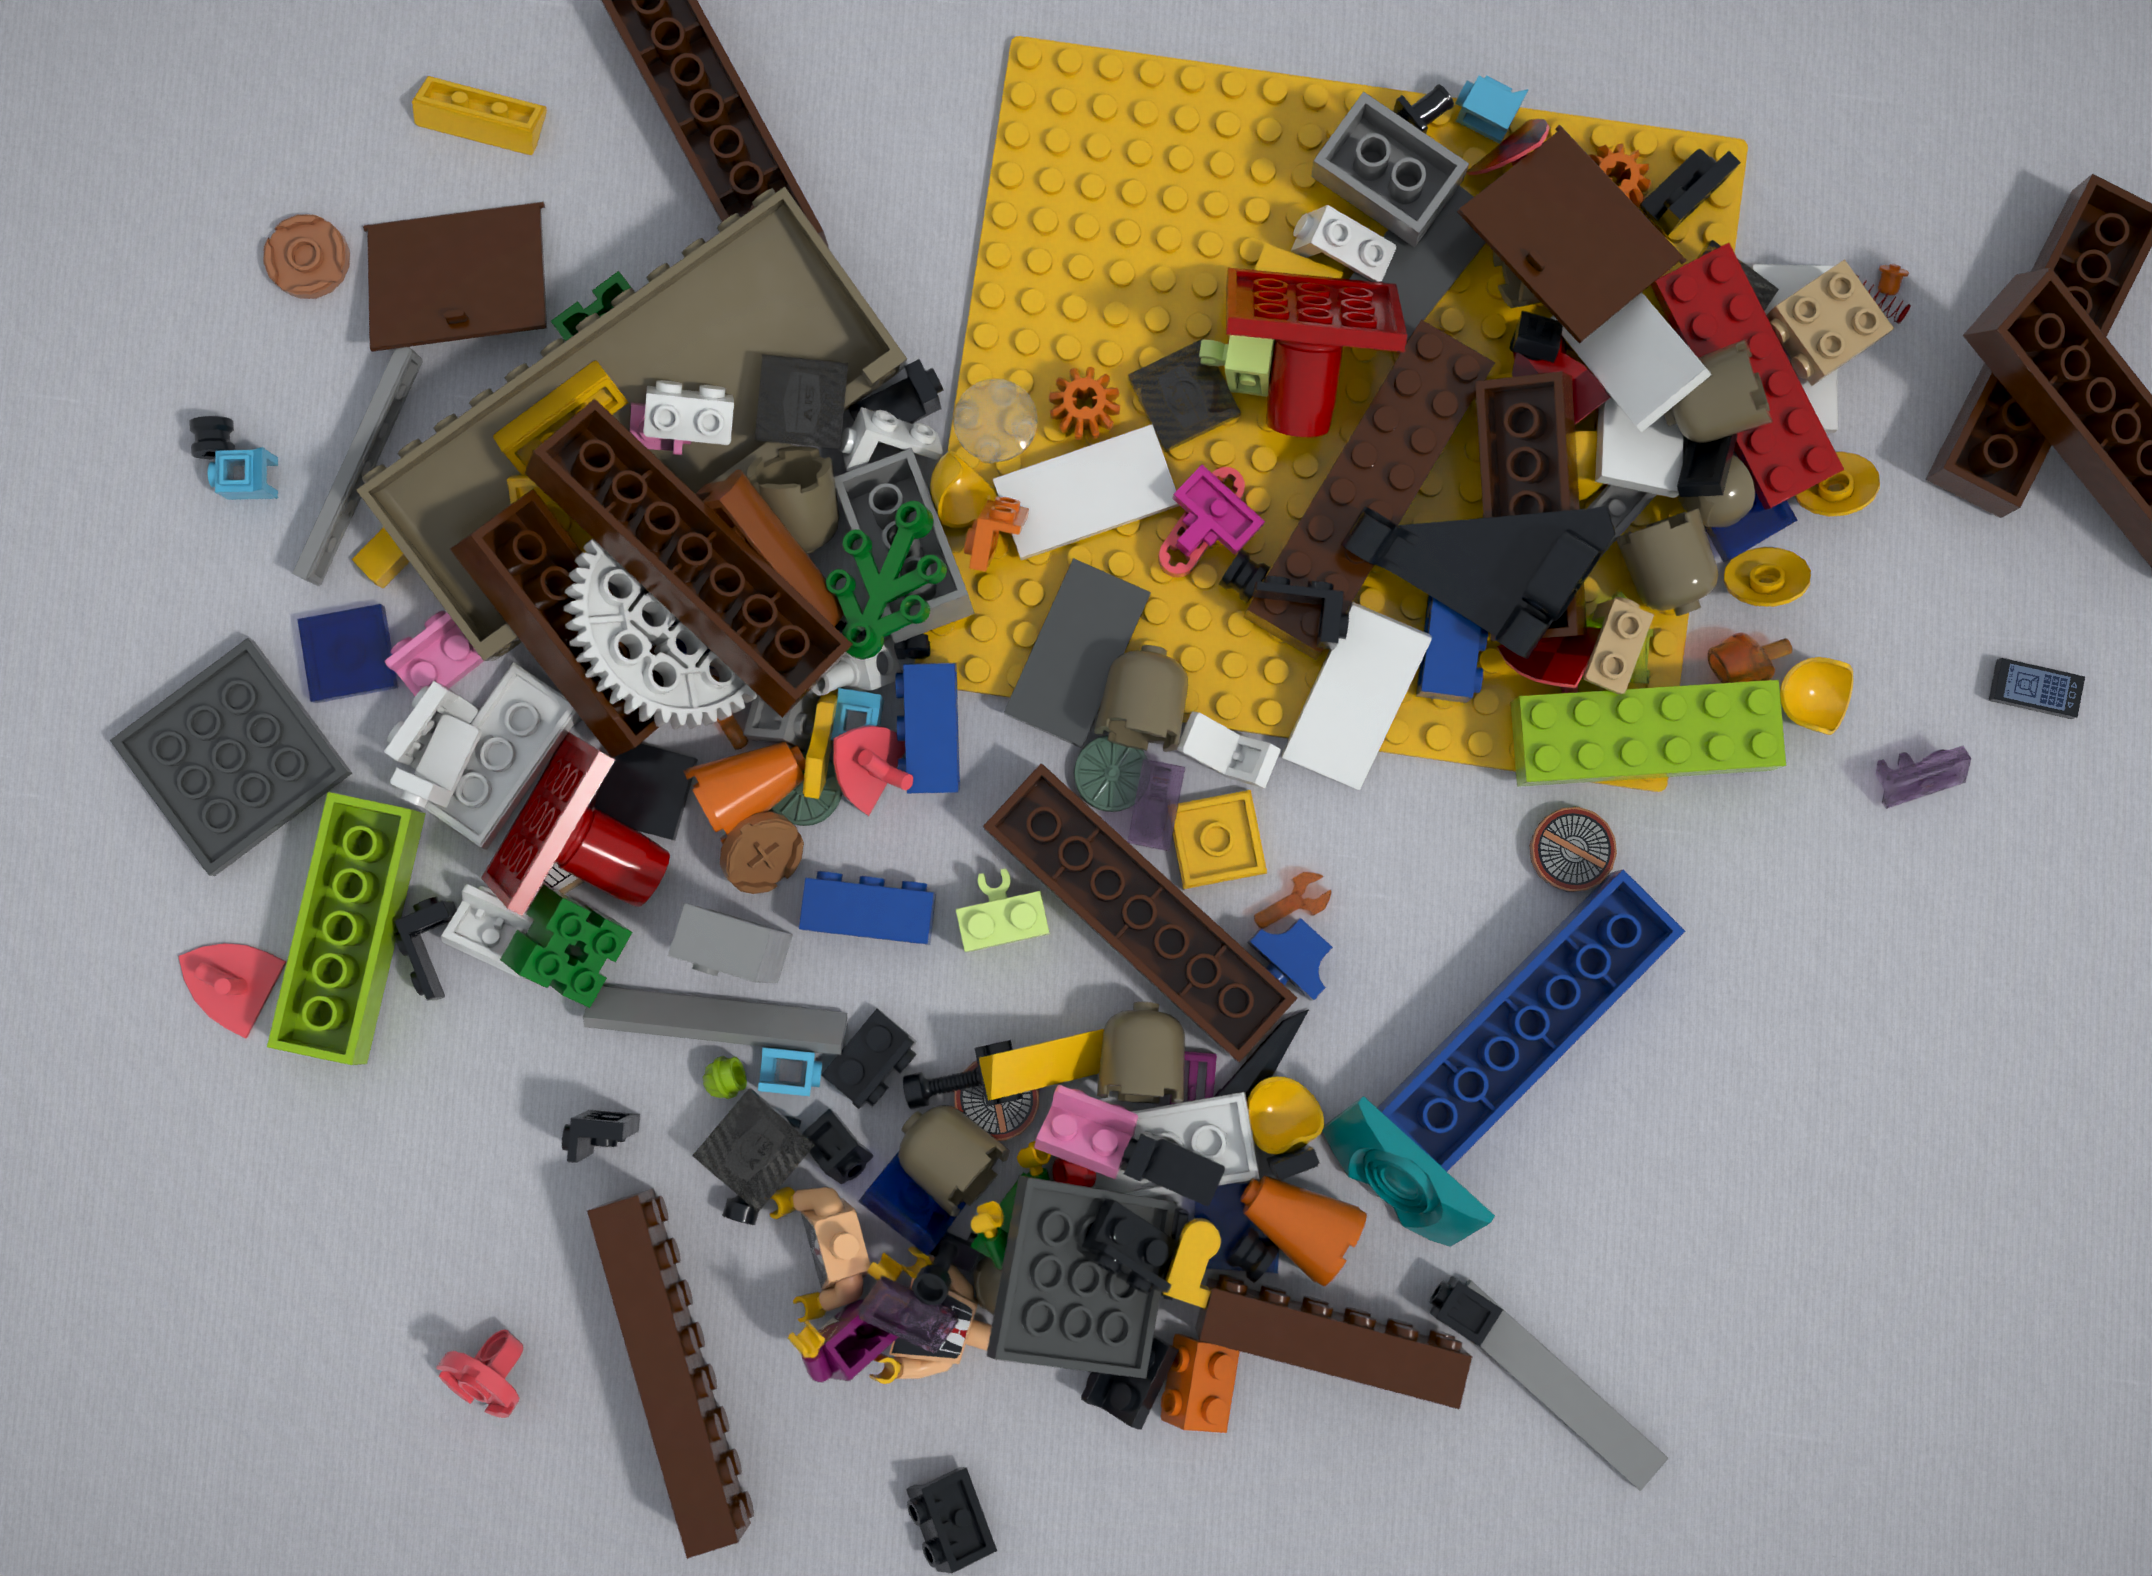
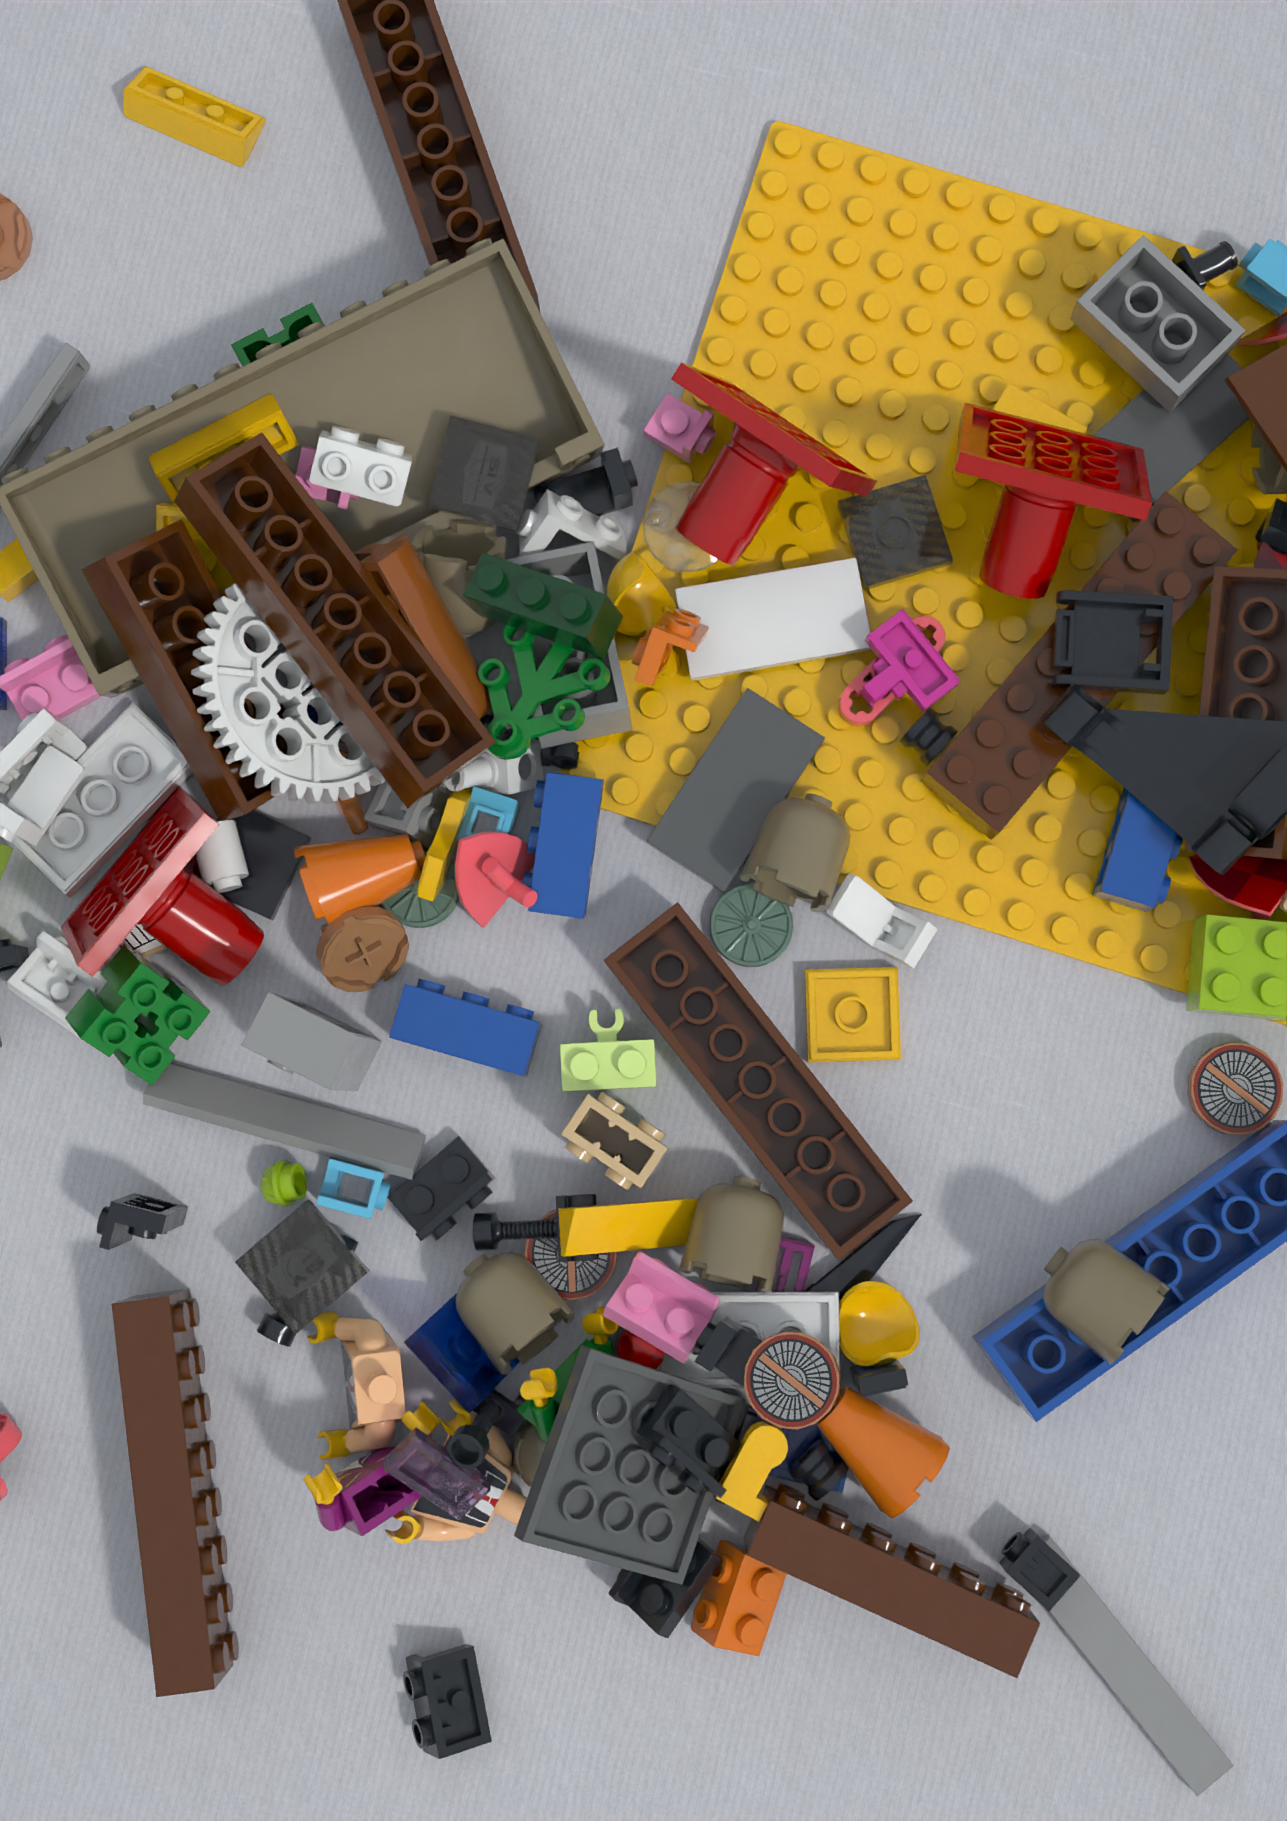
camera: 15 degrees right, 0 degrees up
(456, 276) = (139, 283): reddish brown piece -> none
(620, 791) = (222, 858): none -> white brick
(837, 1148) = (391, 1279): black bracket -> none
(875, 514) = (543, 605): none -> dark green brick
(974, 332) = (681, 428): none -> bright pink bracket
(1009, 983) = (605, 1134): none -> tan brick
(1045, 358) = (752, 468): none -> red piece
(1083, 389) = (805, 528): orange gear -> none
(1156, 805) = (793, 967): clear purple plate -> none
(1214, 1177) = (792, 1380): none -> tile
(1245, 362) = (968, 505): yellowish green brick -> none
(1293, 901) = (924, 1095): clear orange bar -> none
(1294, 956) = (915, 1154): blue brick -> none
(1332, 621) = (1017, 800): black bracket -> none
(1343, 241) = (1093, 393): white bracket -> none
(1356, 696) = (1028, 884): white tile -> none
(1386, 464) = (1103, 641): none -> black container
(1404, 1175) = (996, 1411): teal slope -> none
(1478, 1053) = (1101, 1295): none -> dark tan cylinder

